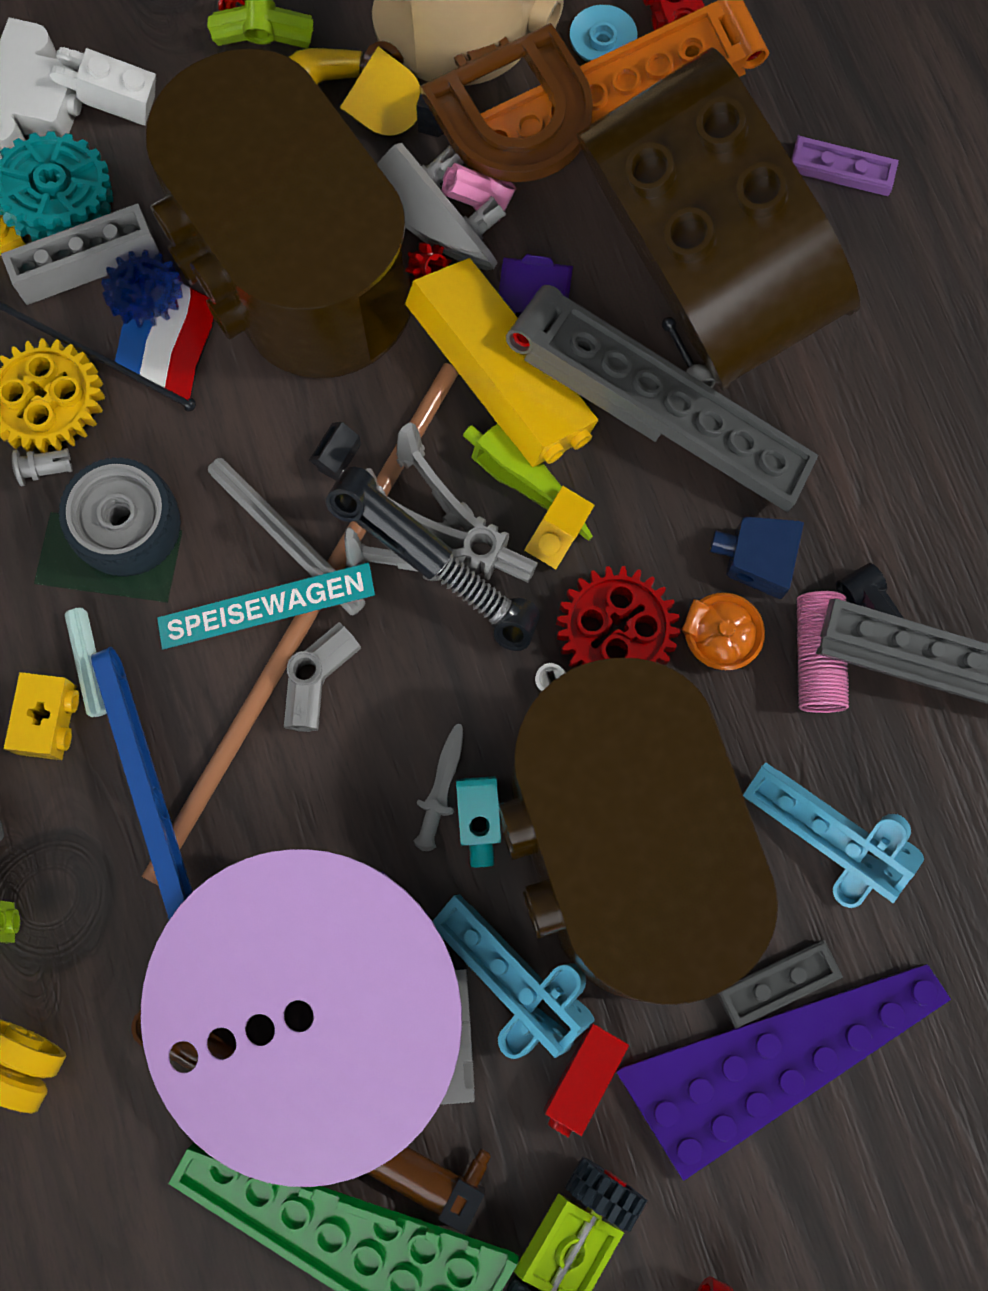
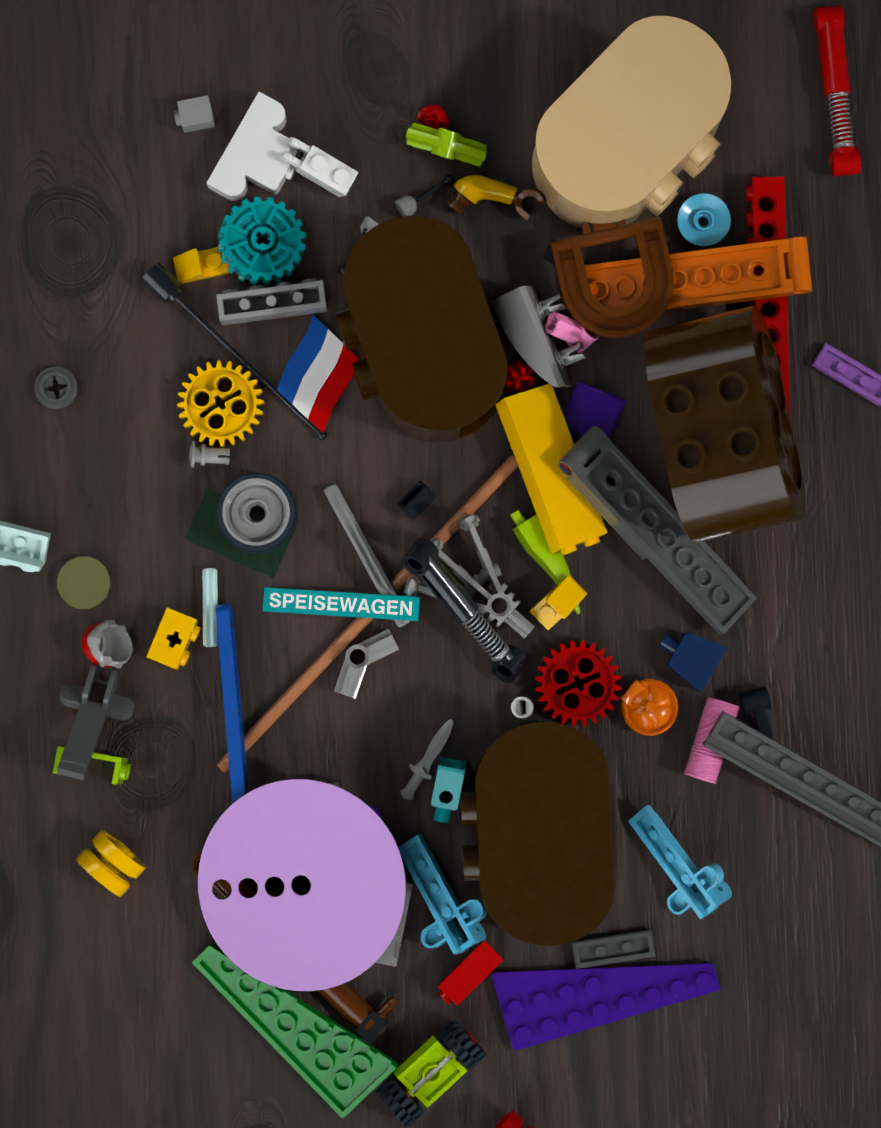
camera: 15 degrees right, 10 degrees up
(124, 289) = (297, 341): clear blue gear -> none
(384, 96) = (523, 231): yellow tile -> none

